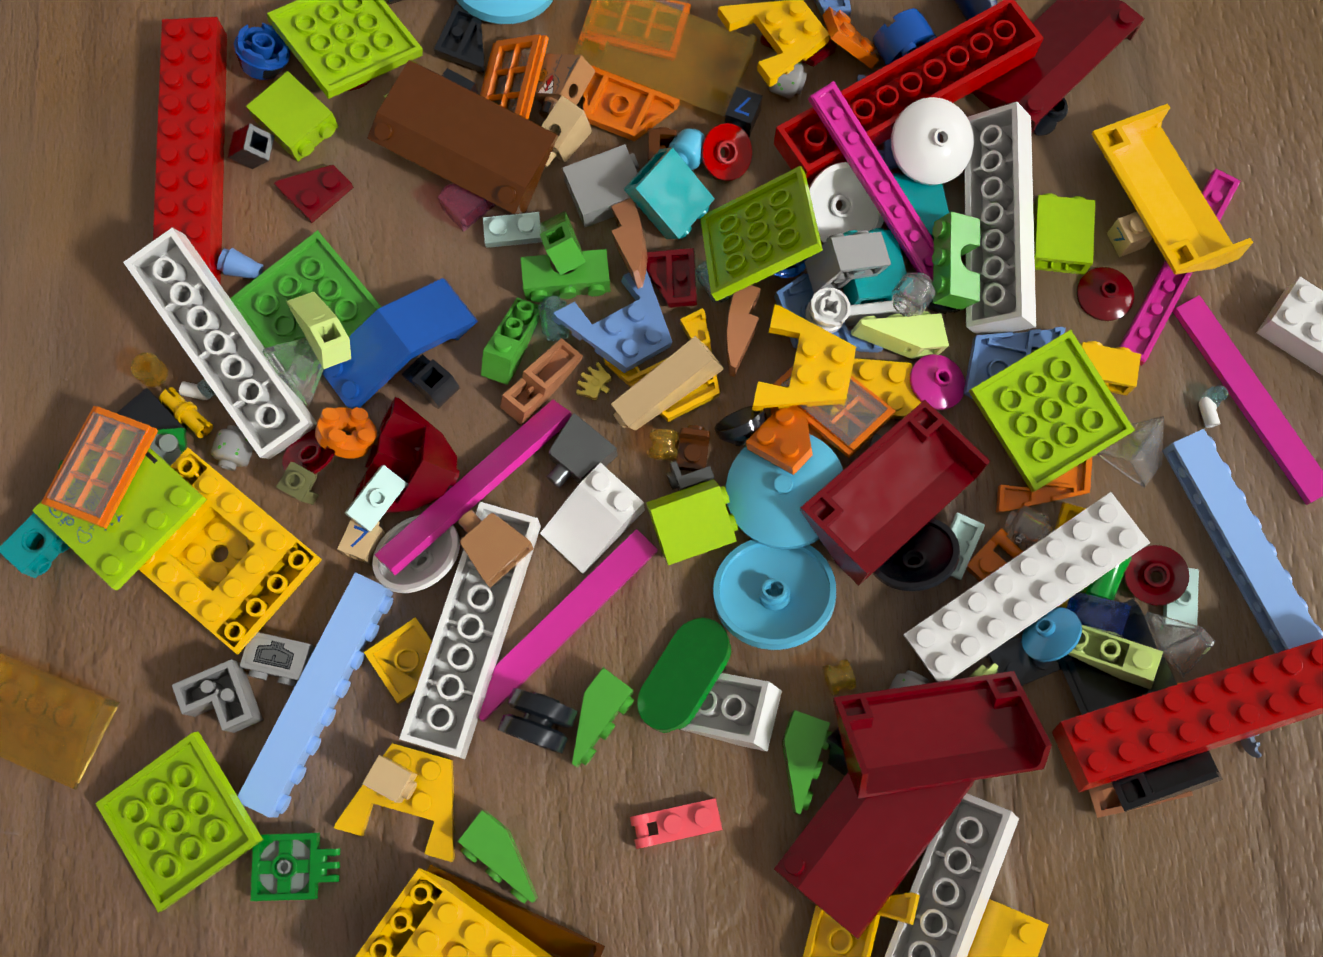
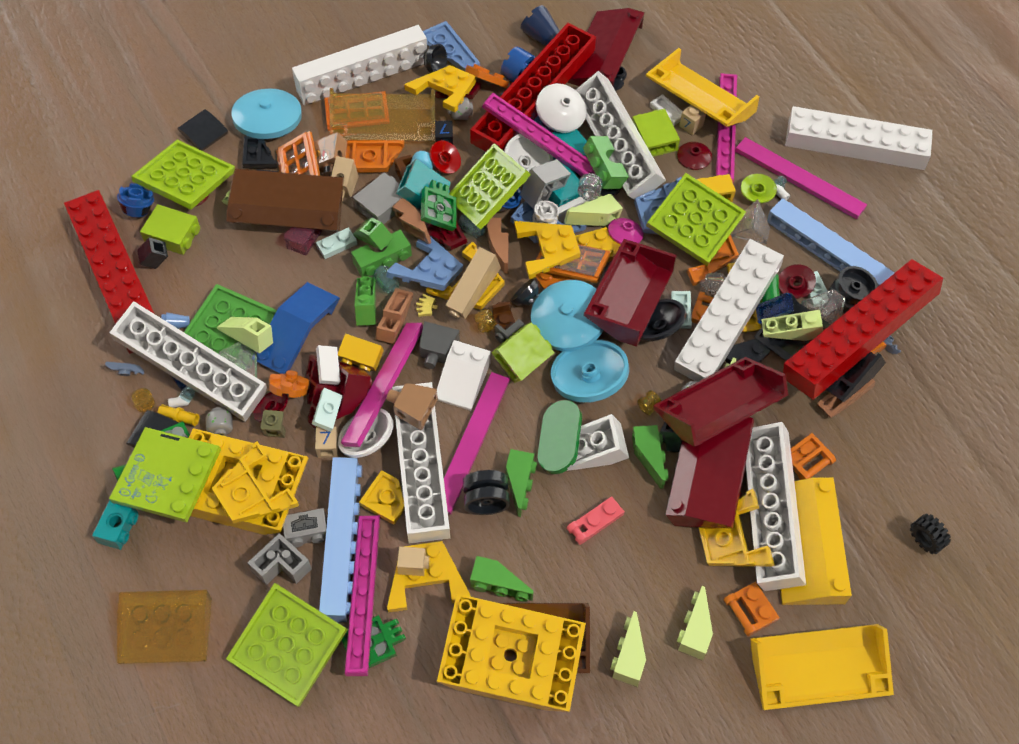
camera: 25 degrees left, 15 degrees down
(99, 467) = (143, 455): clear piece -> none
(143, 310) = (124, 369): none -> sand blue piece
(203, 580) = (243, 495): none -> yellow wing
(307, 795) = (362, 596): none -> dark pink tile
(315, 190) = (202, 266): dark red wing -> none
(408, 427) = (328, 365): none -> white tile
(431, 381) = (330, 335): black brick -> none
(464, 423) = (360, 352): none -> yellow brick
(675, 235) = (438, 206): none -> green piece
(783, 440) = (555, 286): orange plate -> none
(1029, 856) = (805, 452): none -> orange plate
(1052, 635) = (756, 330): dark azure dish -> none
(1107, 206) = (672, 110): none -> white tile
(1186, 386) = (758, 187): none -> lime dish
(1240, 626) = (854, 285): none -> black wheel

